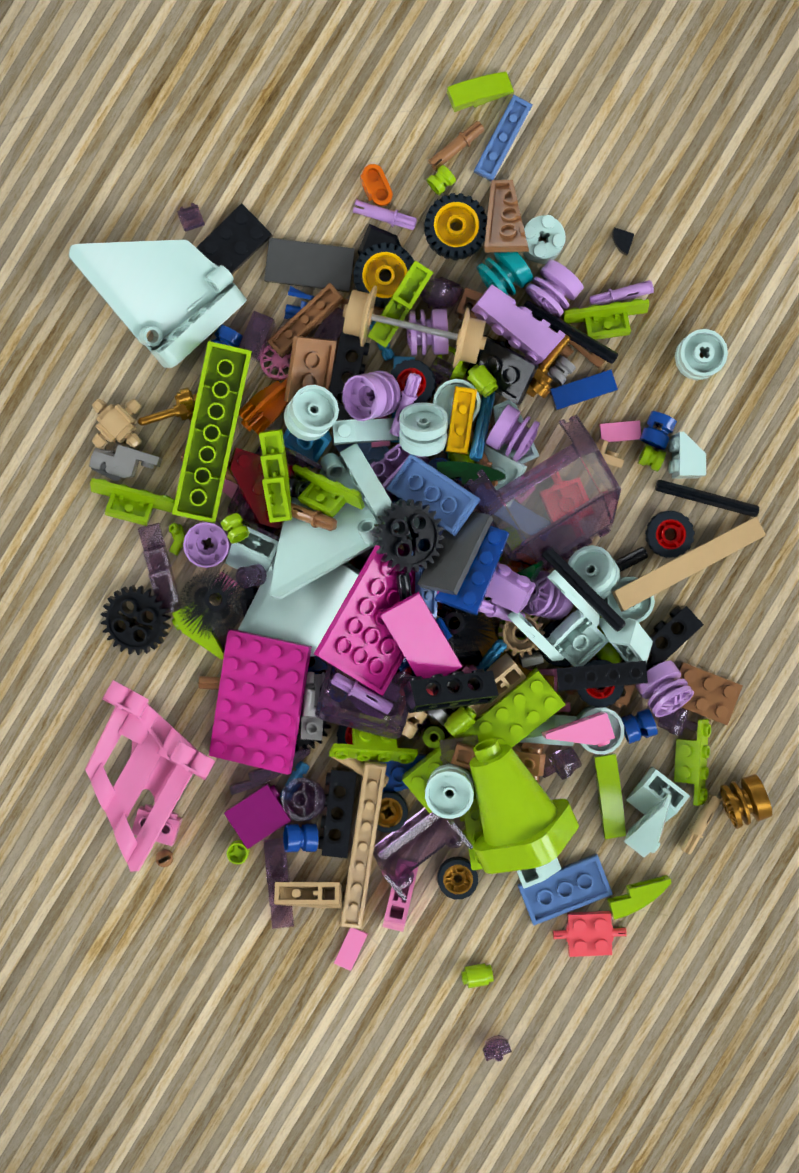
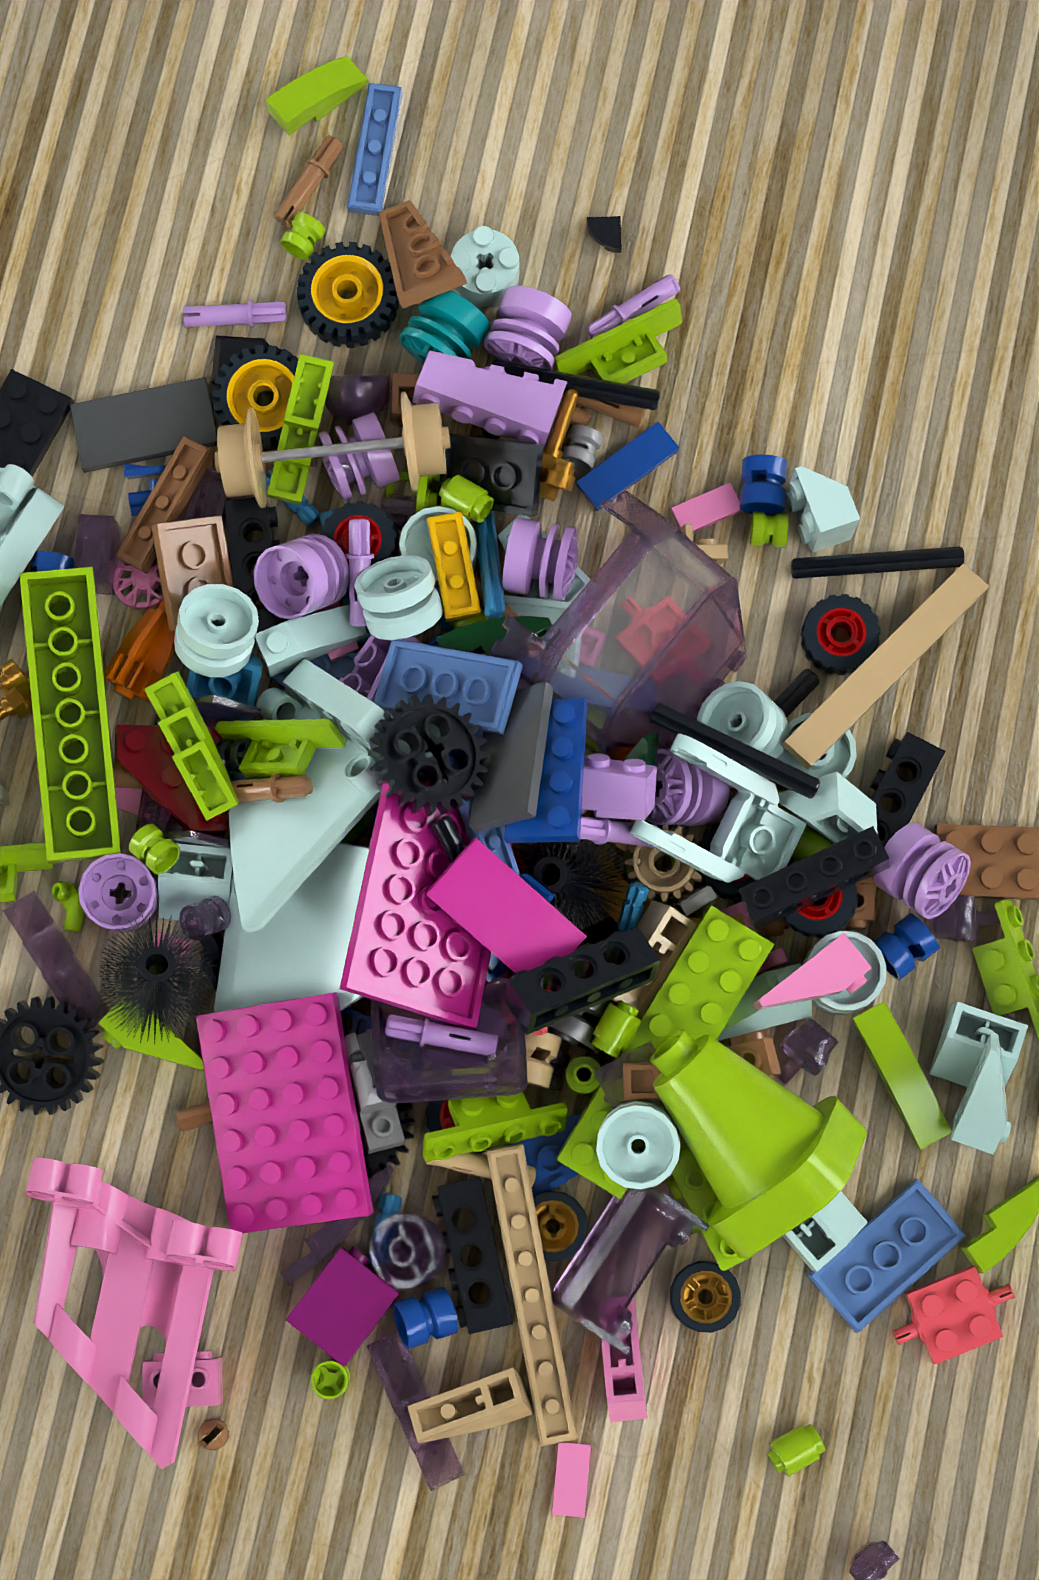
camera: 20 degrees left, 10 degrees down
(376, 185) = (207, 276): orange bracket -> none
(705, 342) = (786, 352): light aqua wheel -> none

